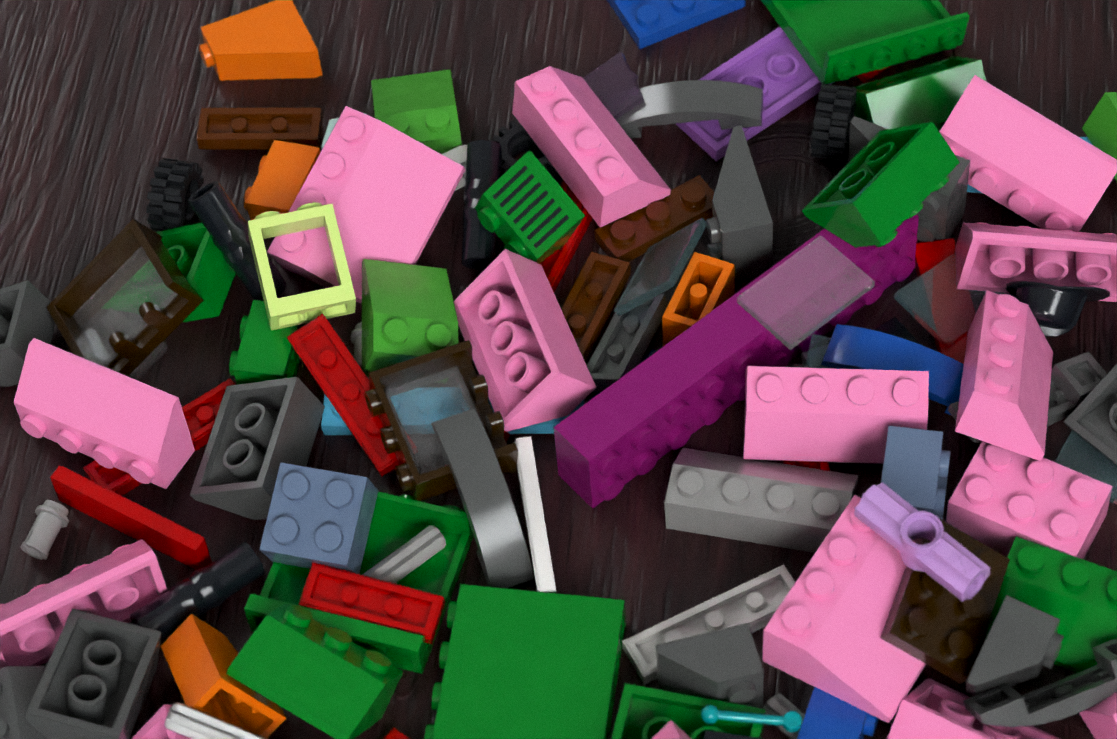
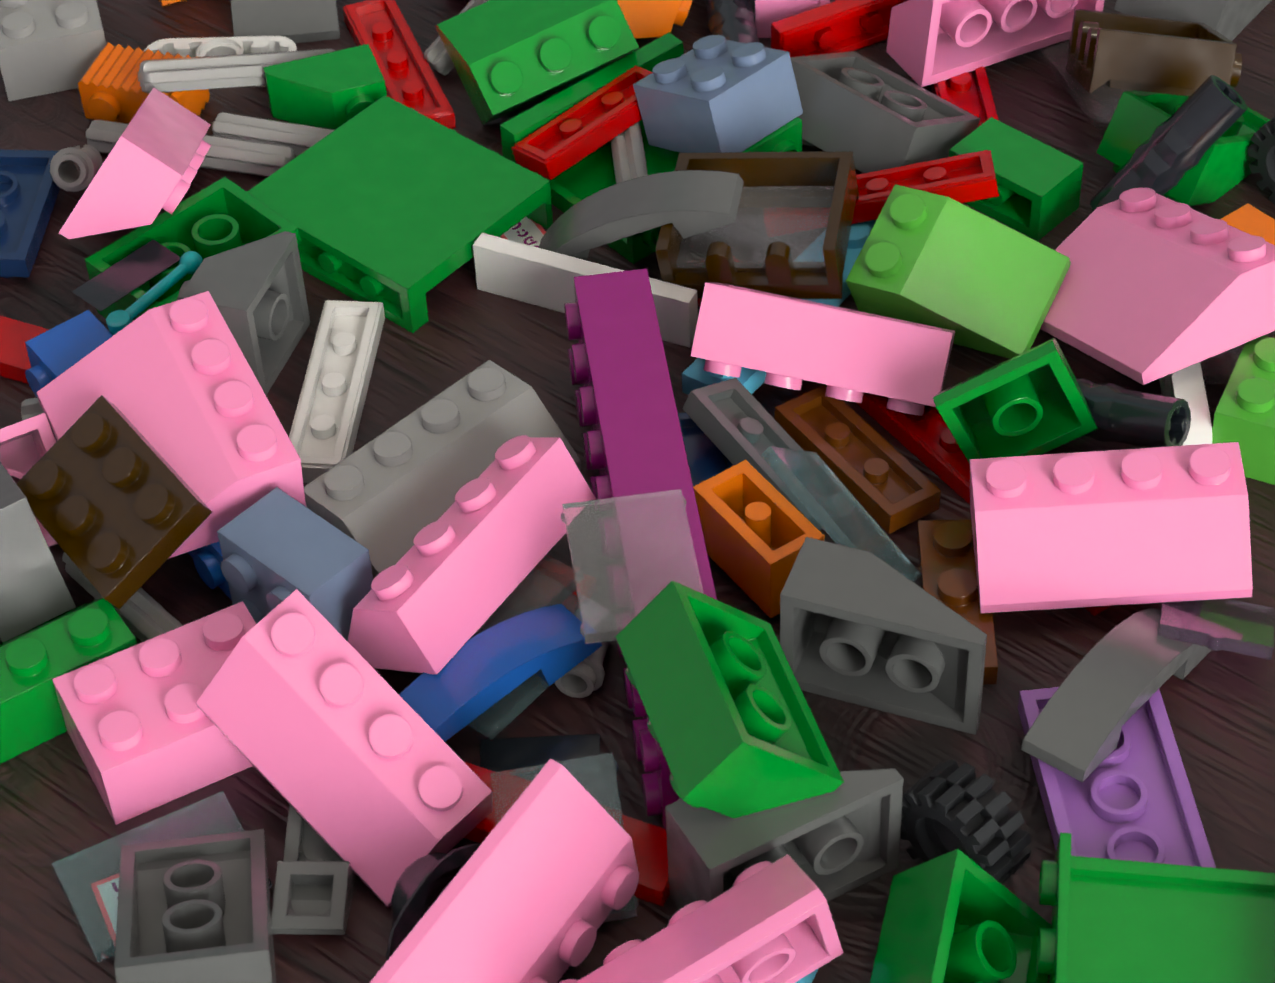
camera: 120 degrees right, 10 degrees down
(306, 306) = (1077, 201): yellowish green window -> none
(941, 558) = (152, 436): lavender piece -> none

